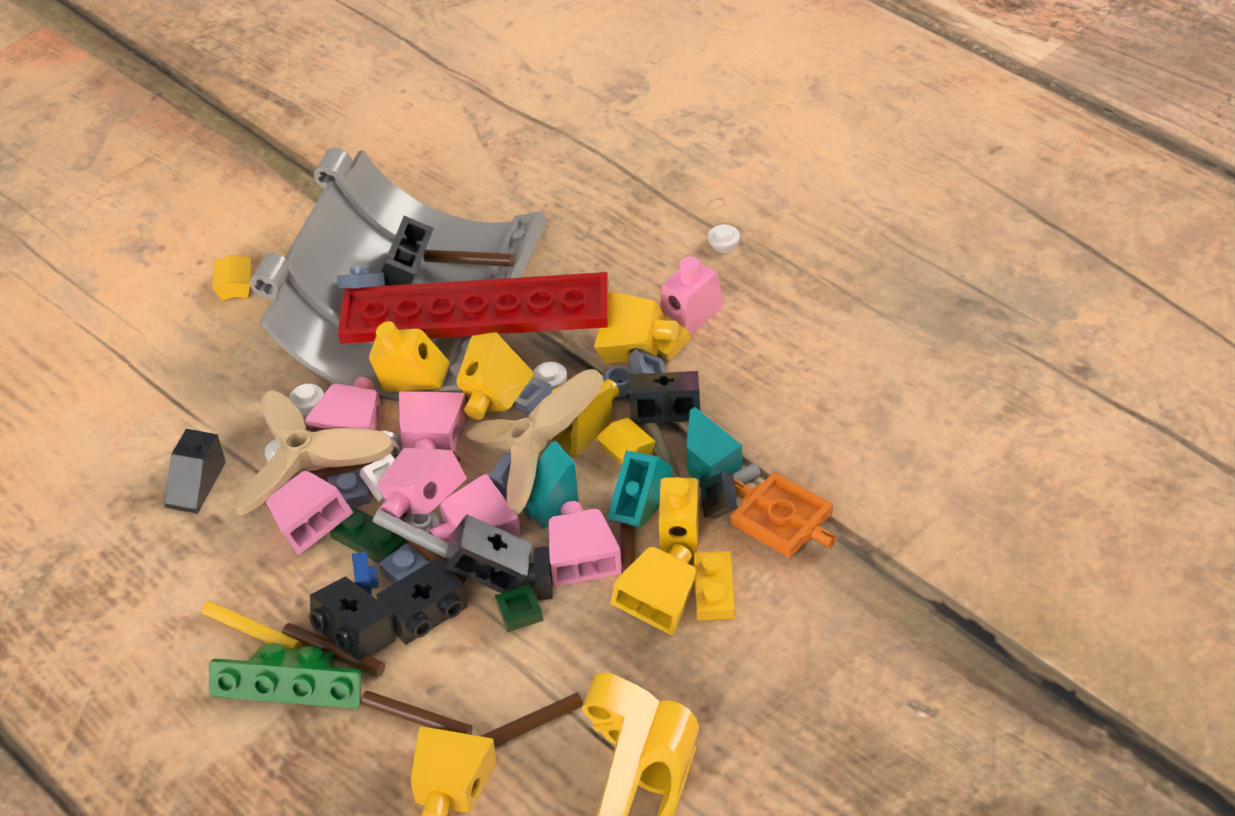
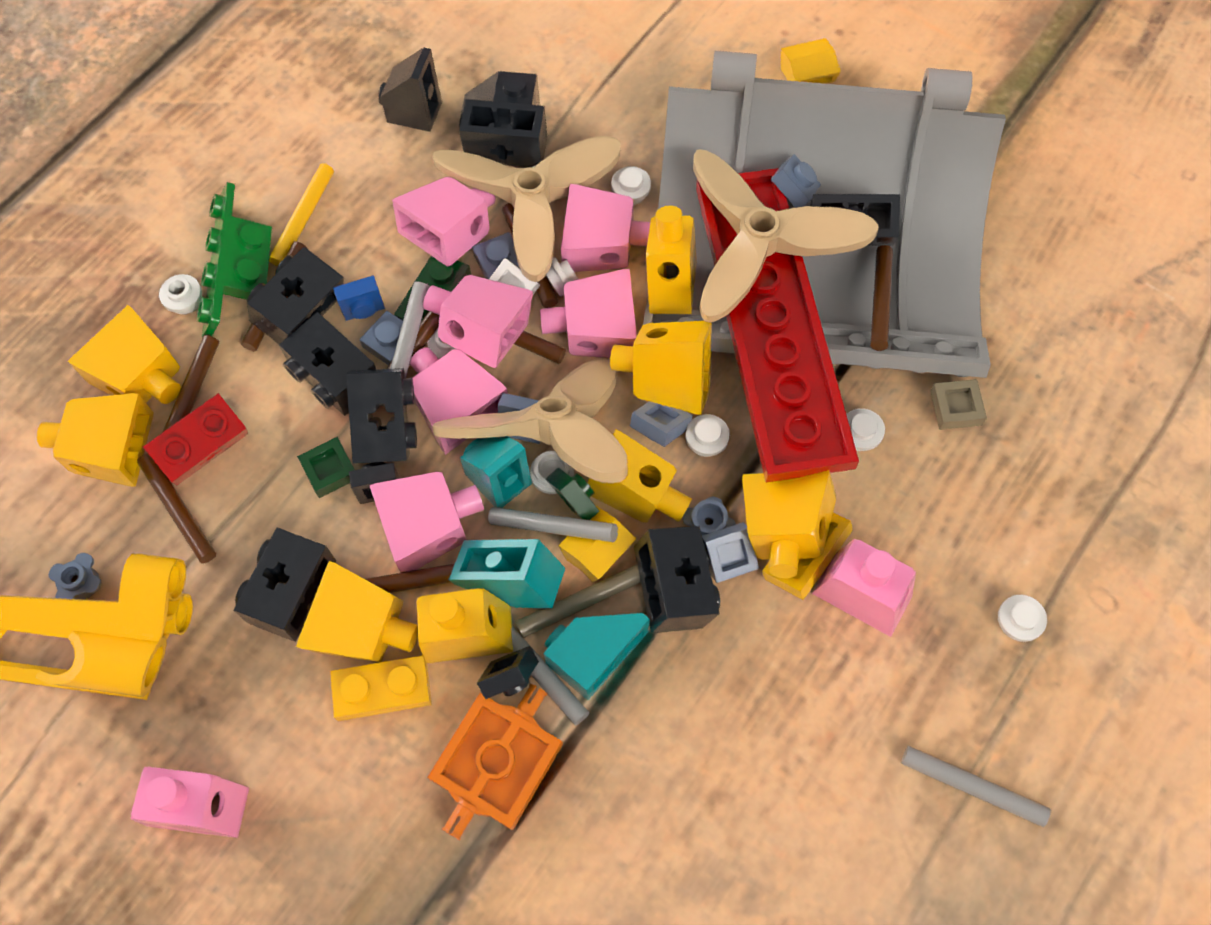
camera: 80 degrees right, 20 degrees up
(159, 523) = (412, 92): none -> black slope
(231, 463) = (504, 132): none -> black brick
(312, 726) = (184, 302): none -> white plate
(374, 750) = (128, 360): none -> yellow torso
(410, 296) = (766, 231): none -> tan piece
(474, 689) = (196, 439): none -> red brick
(561, 241) = (958, 404): none -> dark tan plate
(584, 802) = (84, 586): none -> sand blue plate
(586, 445) = (574, 493): none -> dark green plate
(606, 462) = (553, 524): none -> light grey bar
(619, 635) = (279, 606): none -> black brick
(791, 682) = (184, 802): none -> bright pink torso
(830, 279) = (976, 786): none -> light grey bar

